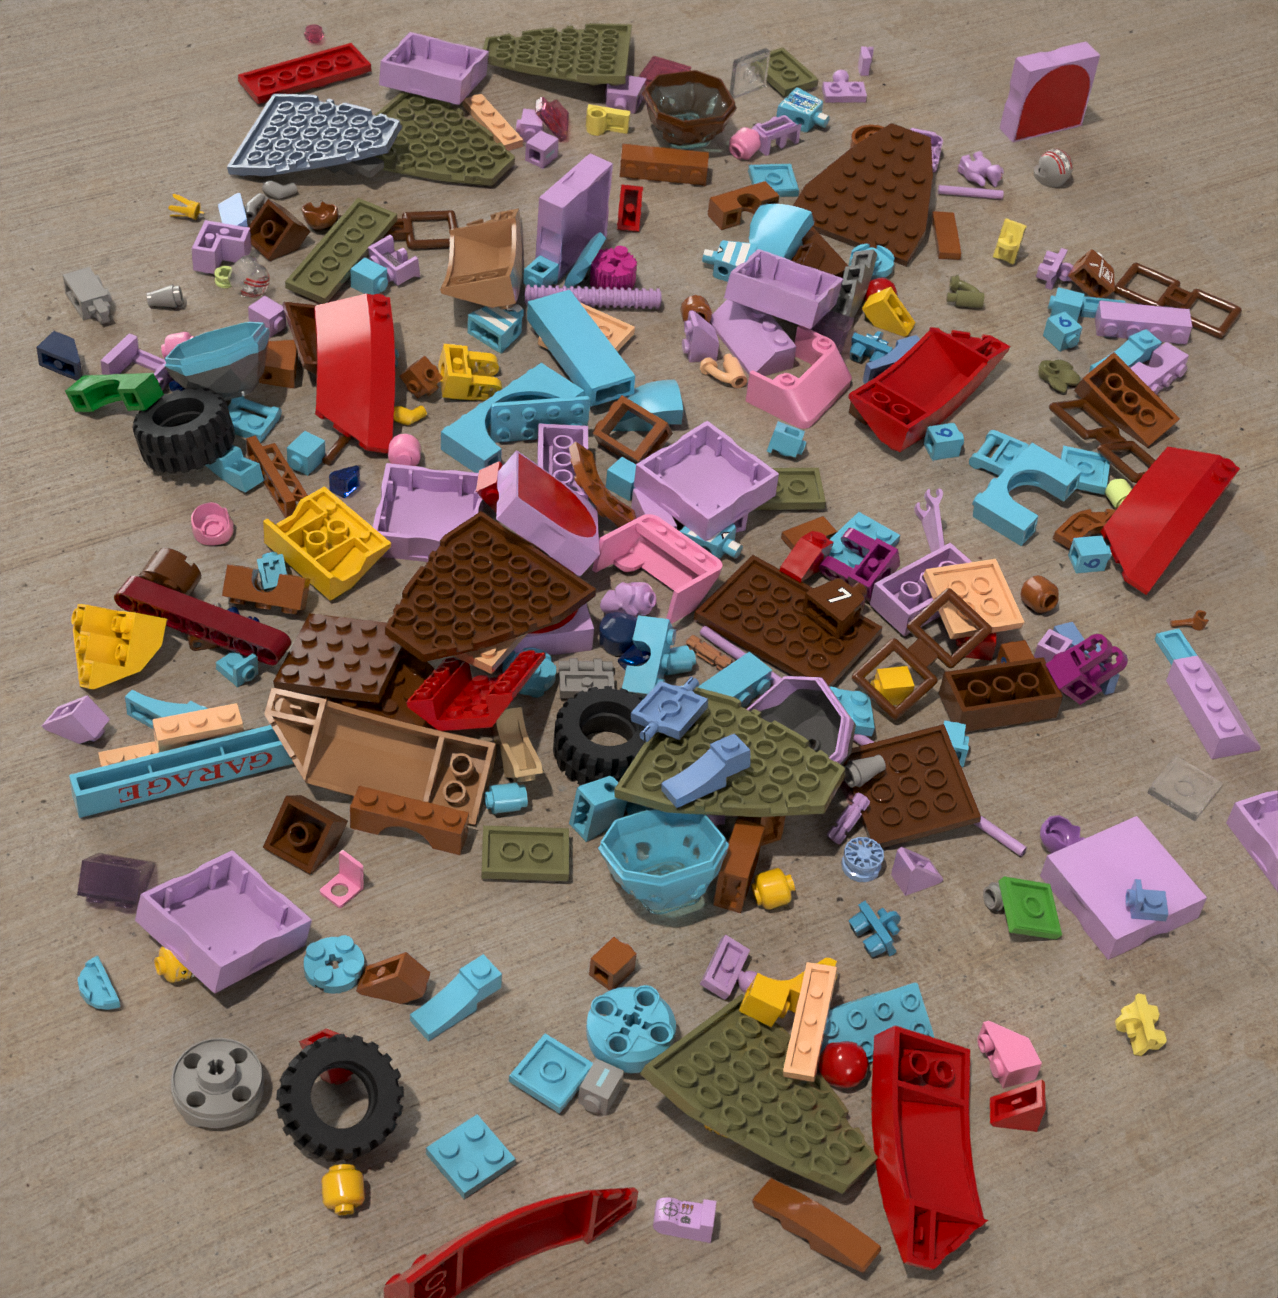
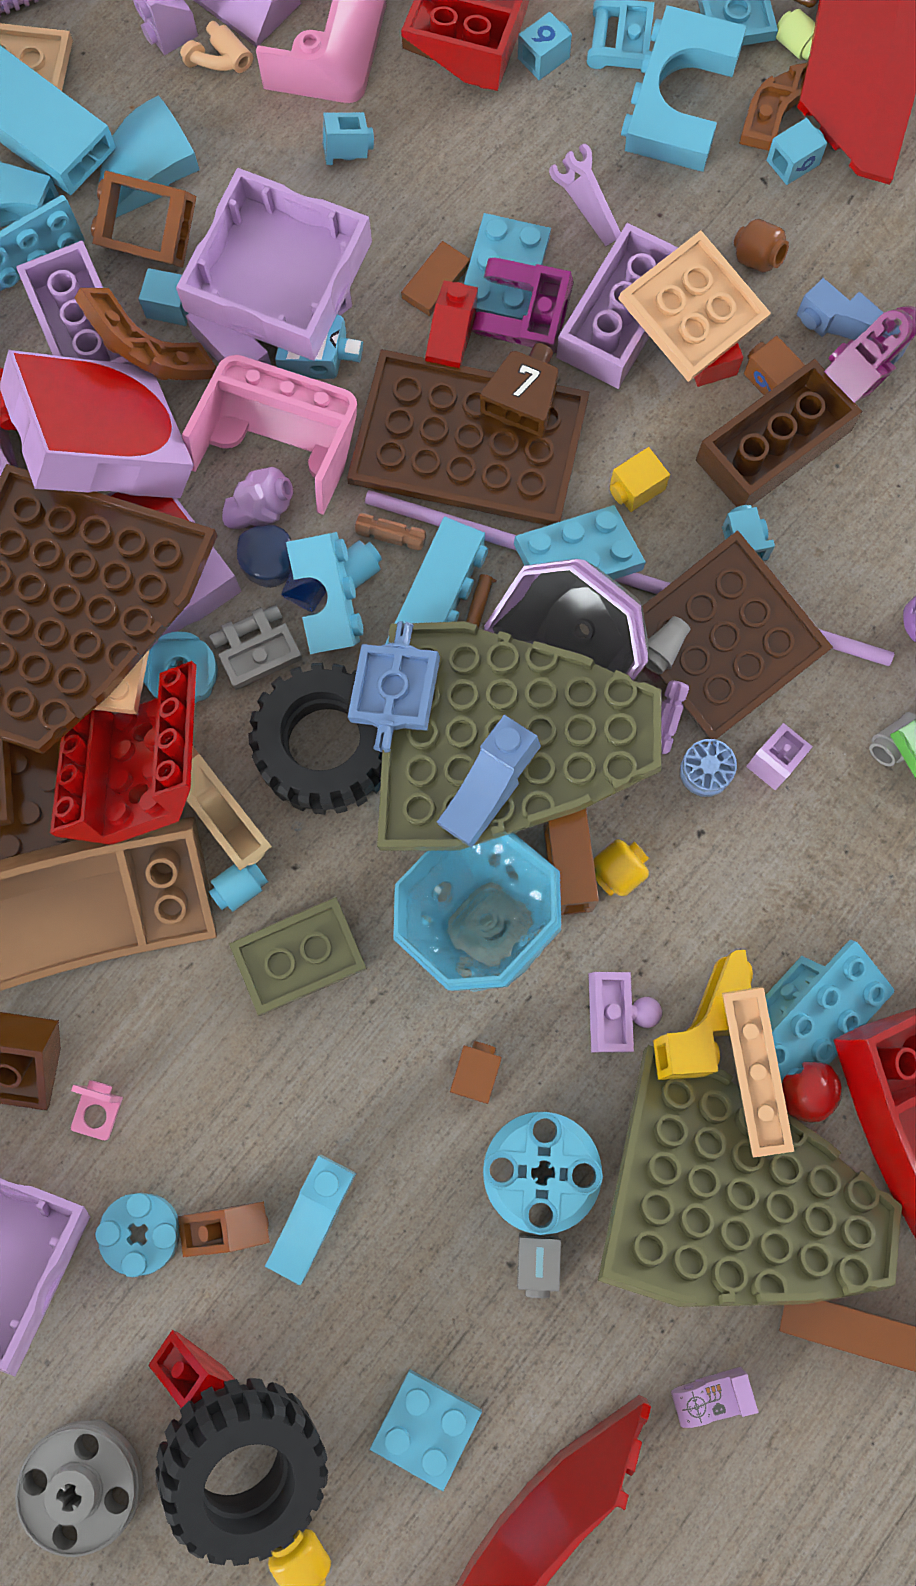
camera: 15 degrees left, 30 degrees up
(440, 825) = (132, 978): dark orange arch -> none
(551, 1073) = (471, 1267): medium azure plate -> none
(596, 808) = (353, 857): medium azure torso -> none
(797, 490) = (394, 210): olive plate -> none
(867, 920) = (779, 880): dark azure hips -> none
(921, 654) = (663, 421): reddish brown bar -> none
(1052, 644) = (816, 336): lavender brick -> none

